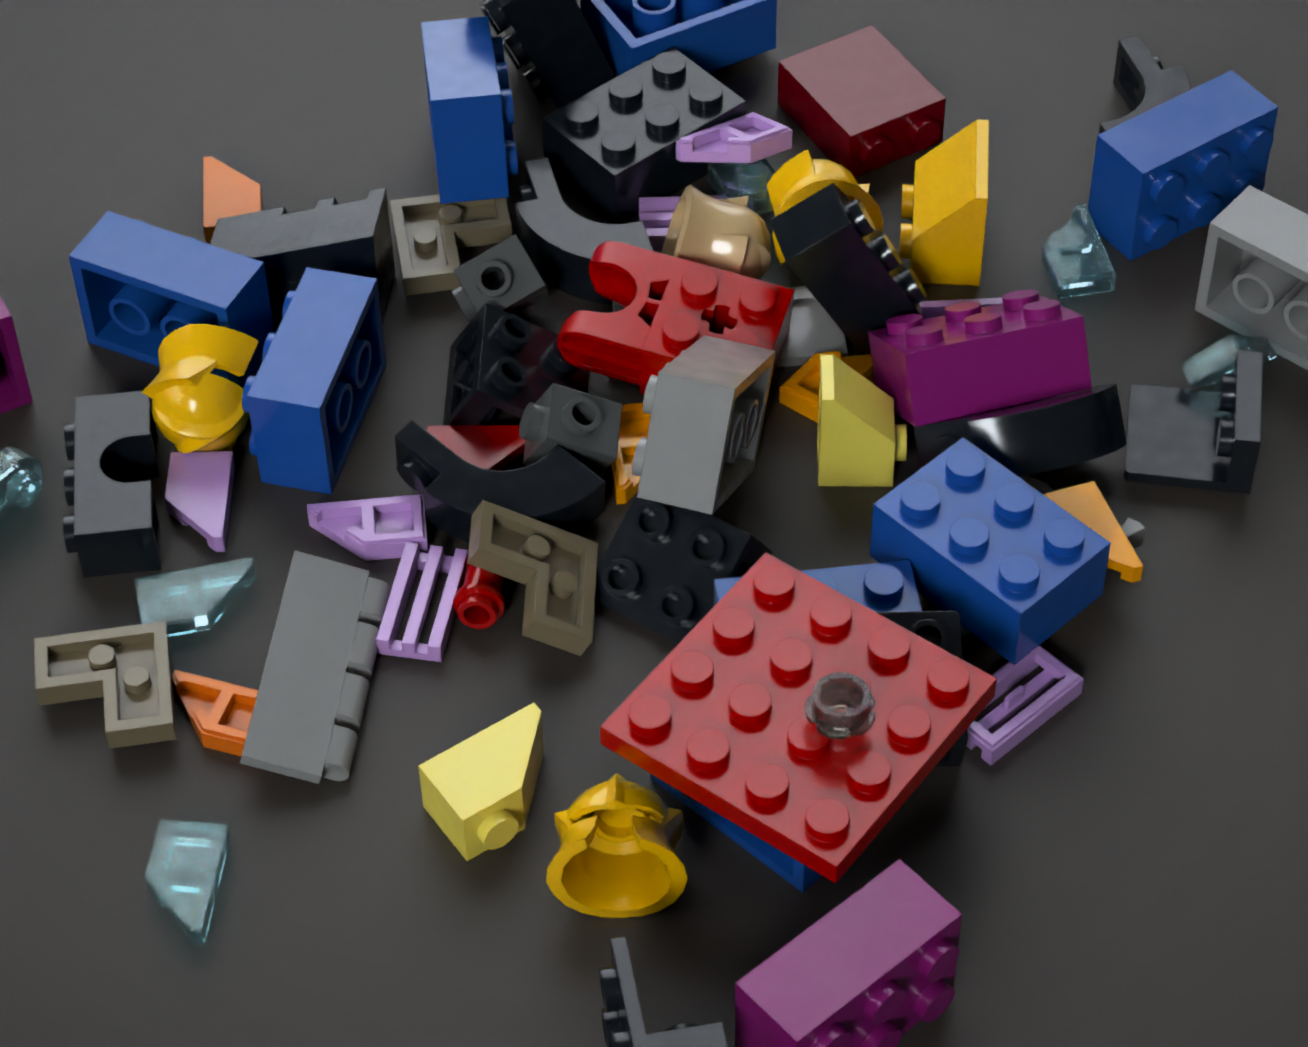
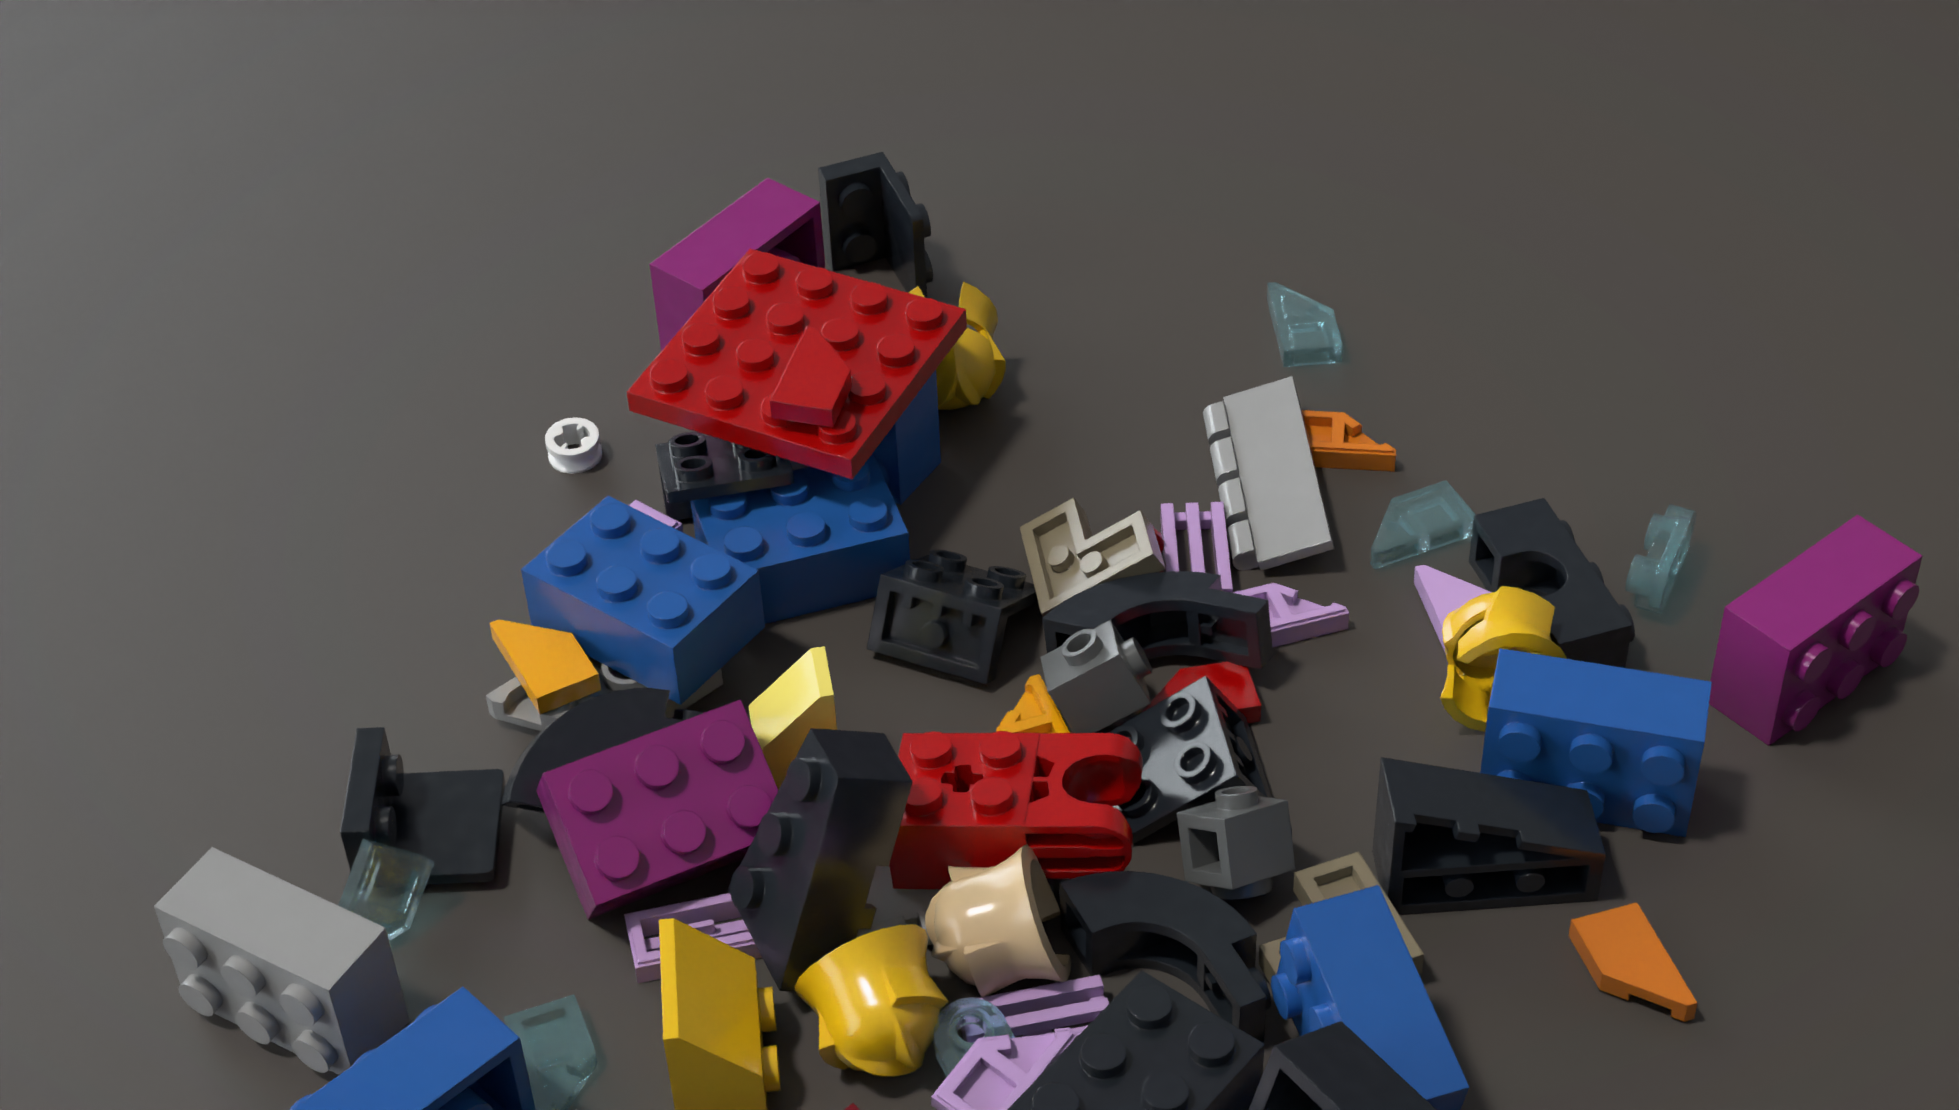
camera: 170 degrees right, 5 degrees down
(123, 666) = (1446, 449): dark tan plate -> none
(316, 380) = (1388, 672): blue brick -> none
(486, 783) = (1079, 400): light yellow slope -> none
(703, 424) = (946, 629): light grey brick -> none
(792, 607) = (812, 383): none -> red tile
(844, 693) = (757, 308): clear smoke plate -> none
(1057, 869) = (570, 432): none -> white bush

